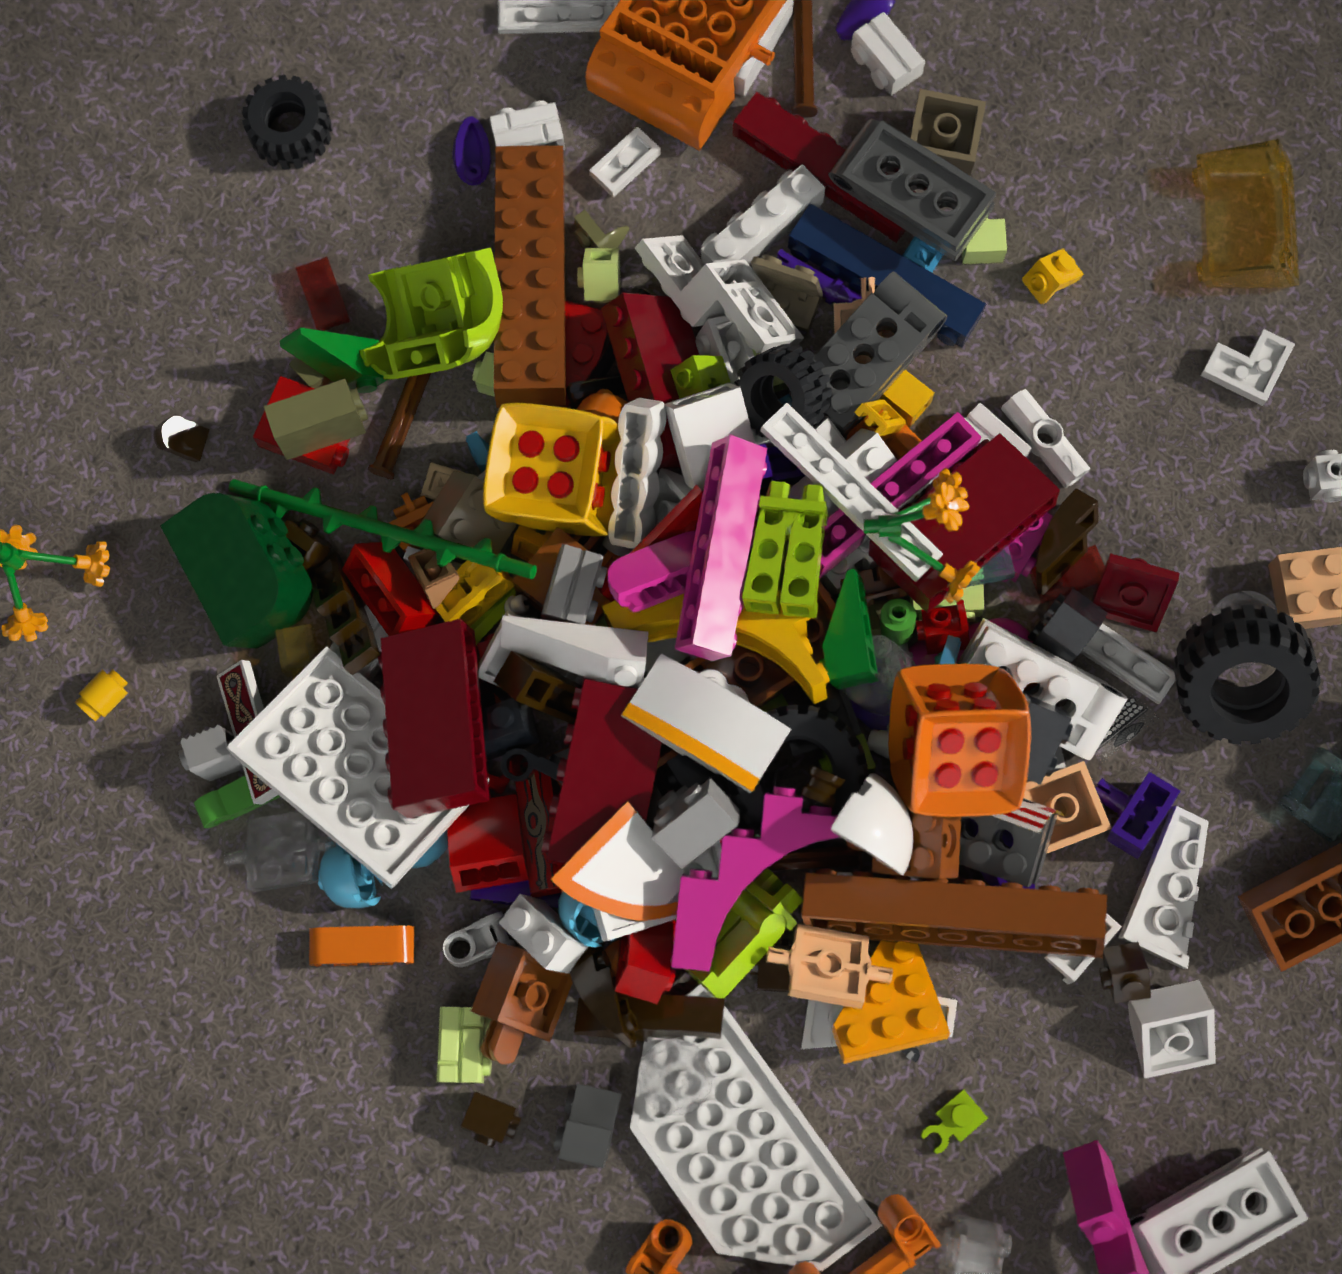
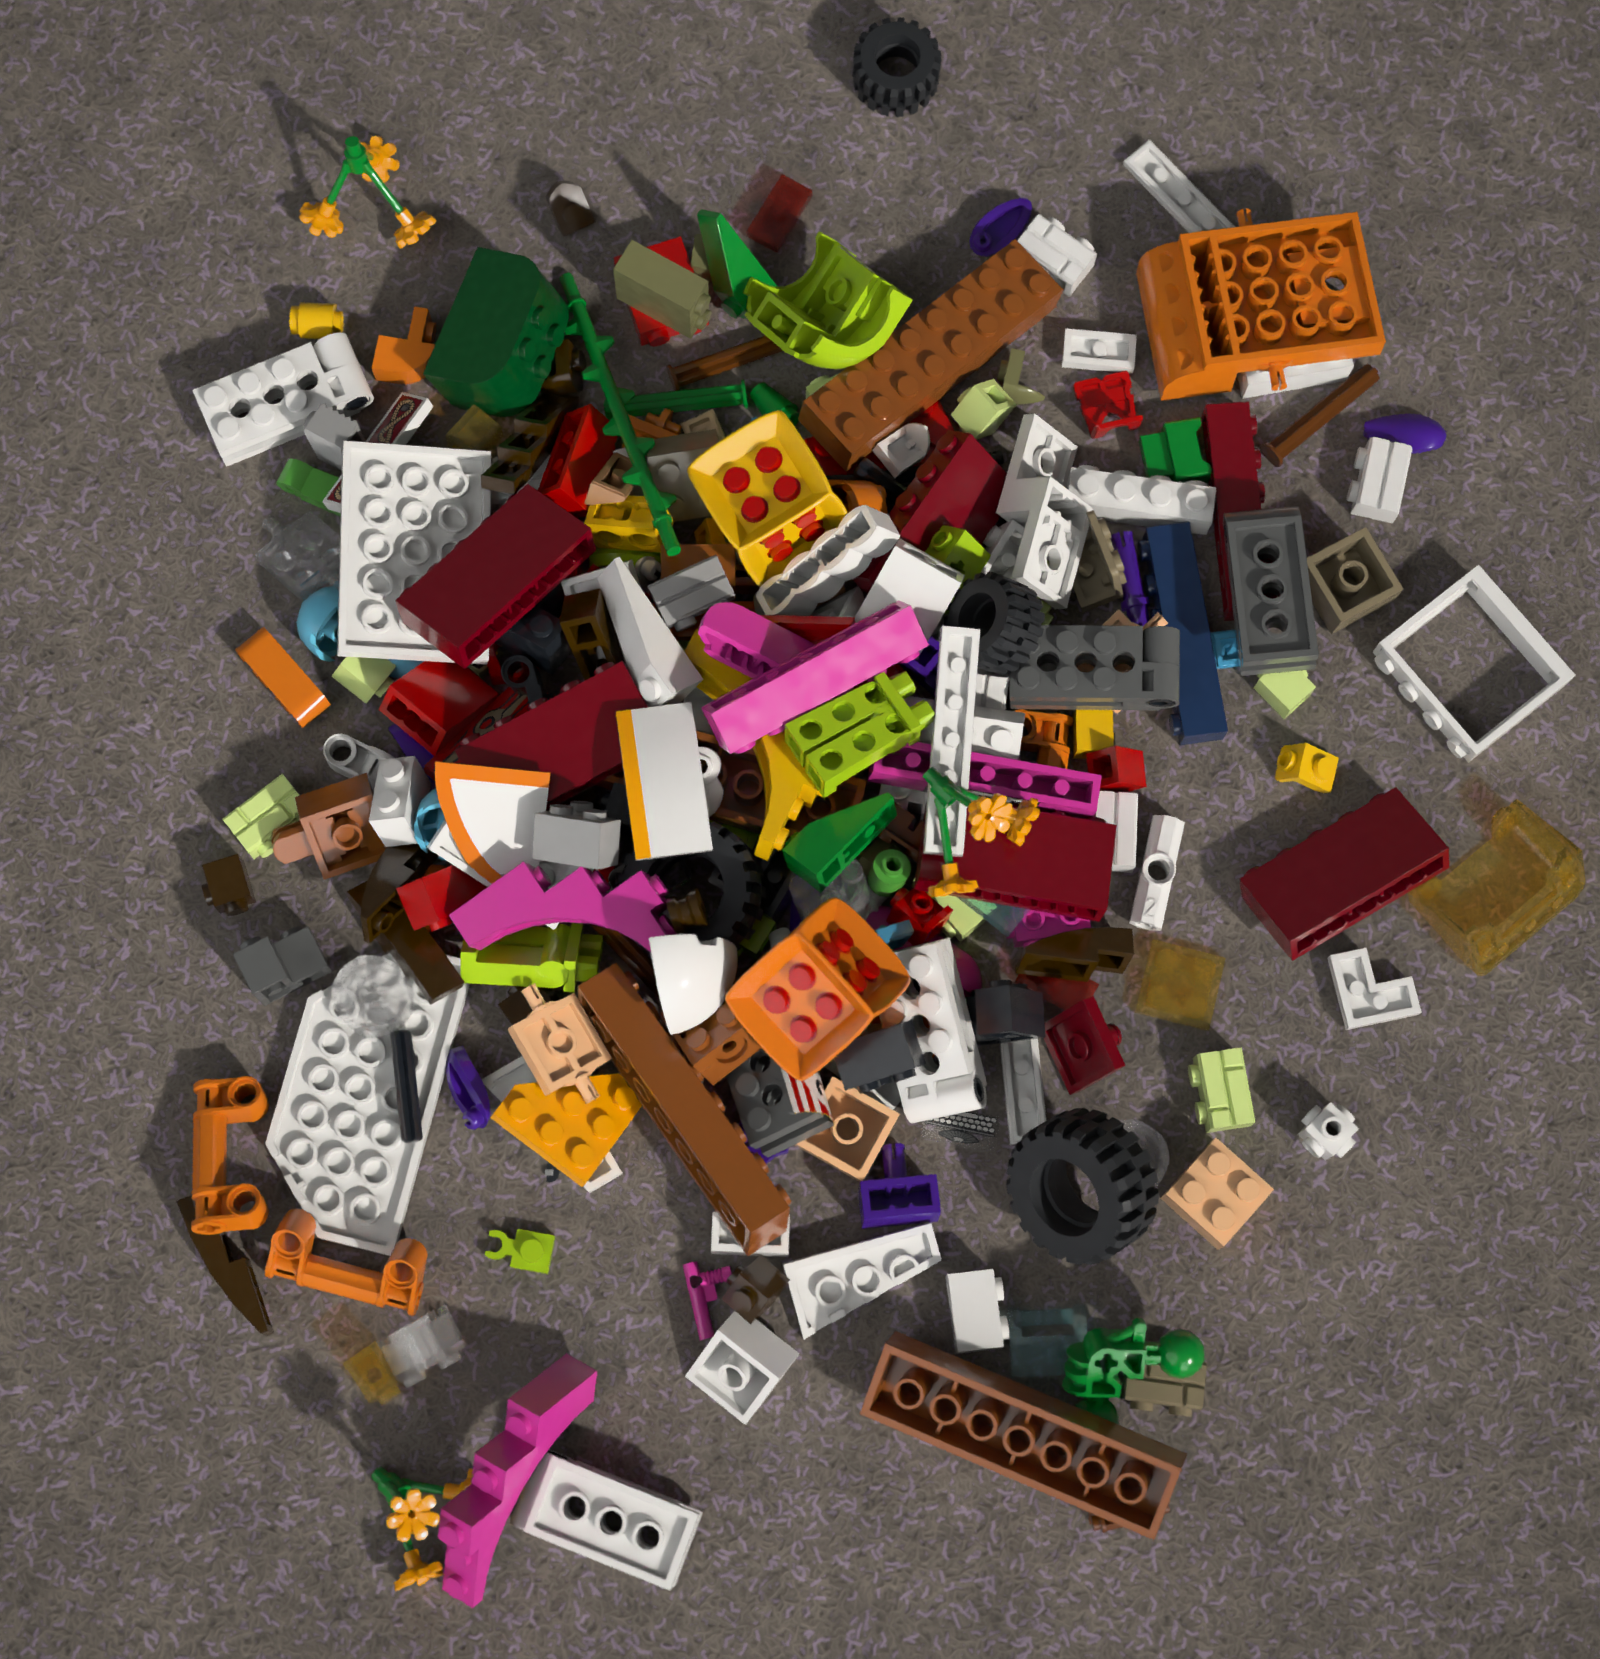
camera: 45 degrees right, 0 degrees up
(145, 713) = (327, 365): none -> white hinge
(195, 650) = (406, 359): none -> orange brick
(406, 476) = (685, 400): none -> green axle
(418, 884) = (365, 676): none -> yellowish green brick
(468, 418) = (770, 400): none -> green cone
(584, 351) = (903, 448): none -> white plate
(662, 185) = (1104, 397): none -> red piece
(747, 172) = (1175, 452): none -> green piece
(763, 1108) = (406, 1086): none -> black axle
(800, 1063) = (467, 1089): none -> dark purple arm
(888, 421) = (1046, 727): yellow tile -> none
(947, 400) = (1120, 768): none -> red brick
(1075, 55) = (1516, 629): none -> white window
(1094, 1014) = (703, 1294): none -> dark pink hose
(1138, 490) = (1180, 985): none -> clear yellow plate
(1154, 311) = (1344, 873): none -> dark red brick
(1241, 524) = (1222, 1090): none -> yellowish green brick
(1265, 827) = (975, 1311): none -> white brick

